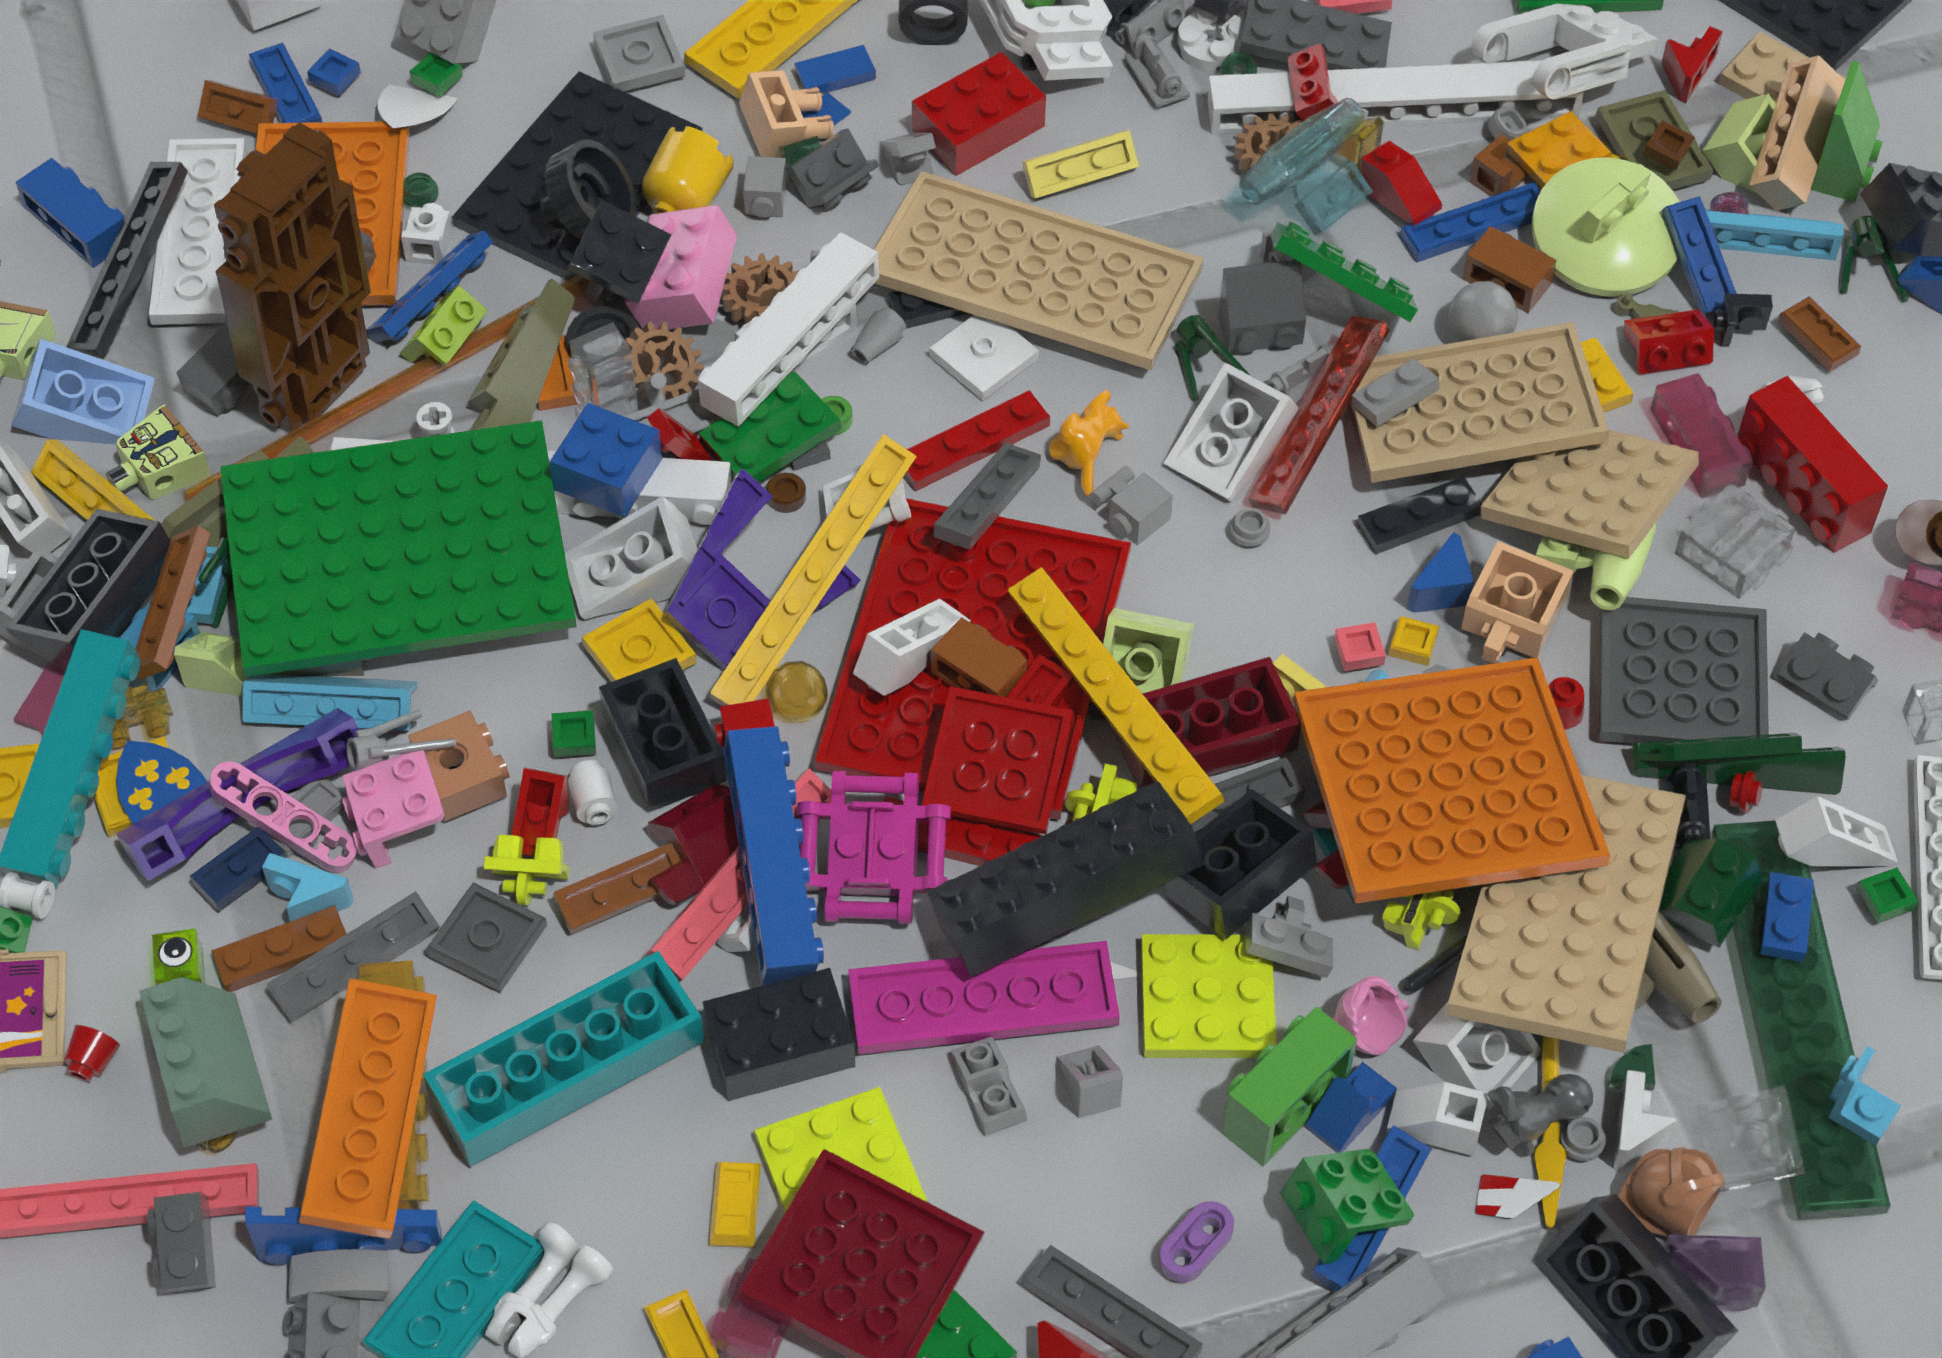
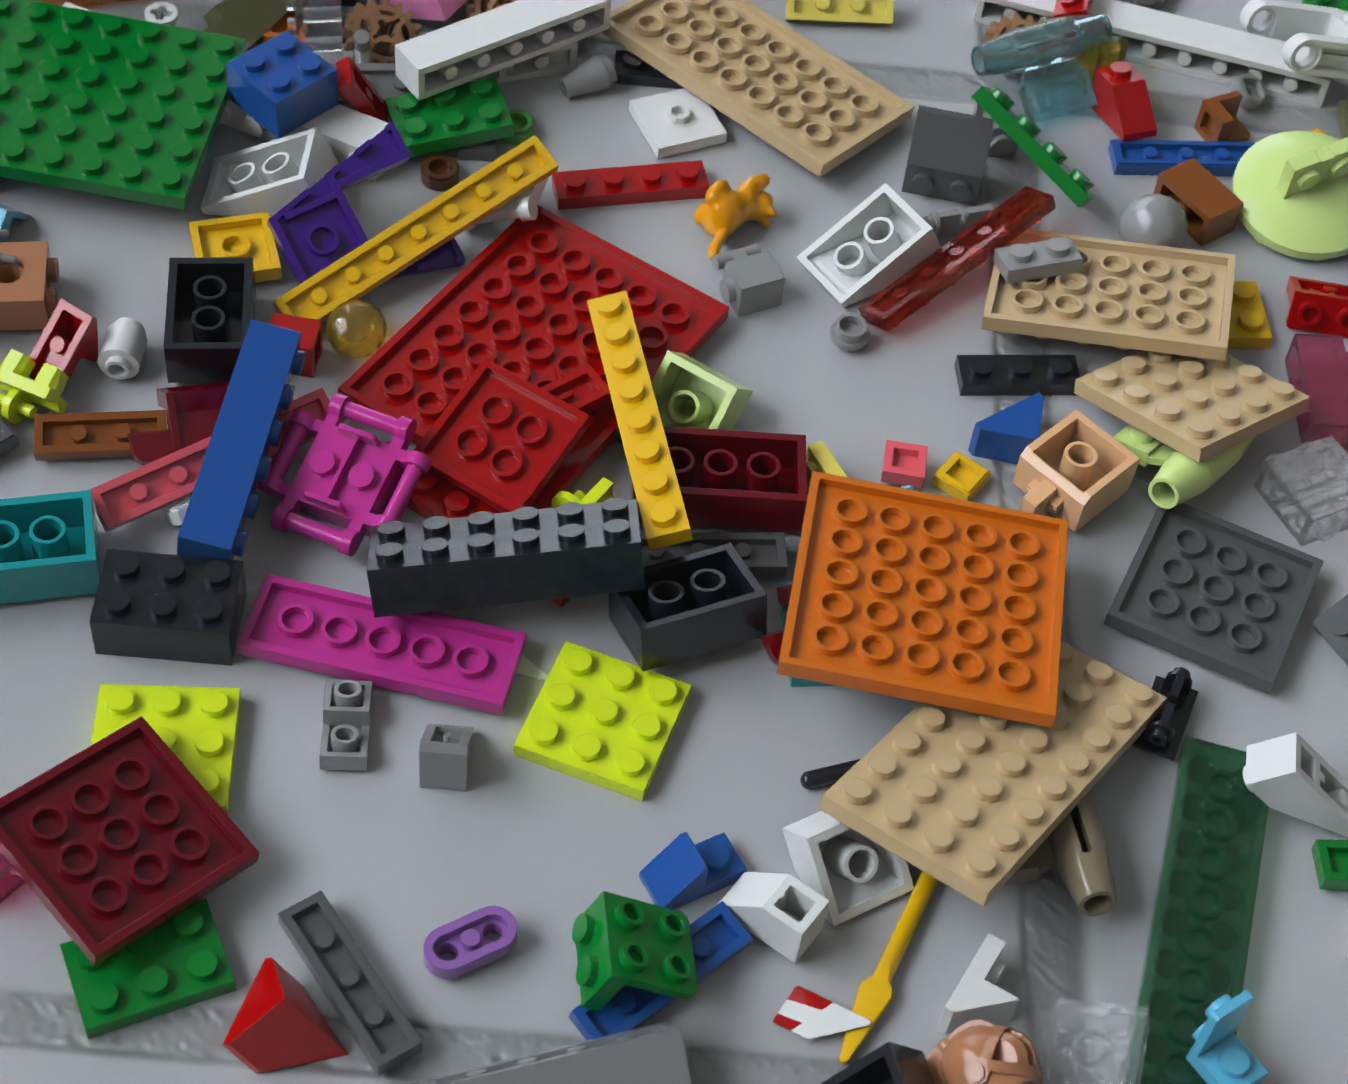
camera: 15 degrees right, 5 degrees down
(573, 733) = (136, 297): green plate -> none
(735, 1204) = (46, 743): yellow tile -> none
(903, 647) = (469, 318): white slope -> none
(976, 661) = (527, 348): dark orange brick -> none
(987, 496) = (612, 225): dark grey plate -> none
(1199, 339) = (877, 169): dark green plant -> none
(1287, 1084) = (629, 821): bright green brick -> none
(1290, 940) = (705, 694): light grey hinge -> none
(1372, 1014) = (747, 792): bright pink hair -> none
(1422, 911) = (848, 715): neon yellow hips -> none
(1528, 1115) = (864, 940): dark grey animal -> none
(1555, 146) = (1284, 115): light orange plate -> none
(1569, 700) = (1084, 578): red hat -> none
(1583, 1139) = (916, 987): light grey plate -> none
(1626, 304) = (1298, 266): olive piece -> none
(1639, 1060) = (1011, 931): clear green tile -> none
(1709, 888) = (1153, 792): dark green slope -> none
(1745, 791) = (1232, 717): red plate -> none
(1773, 757) = (1245, 690): dark green wedge -> none
(1787, 916) = (1223, 846): blue plate -> none

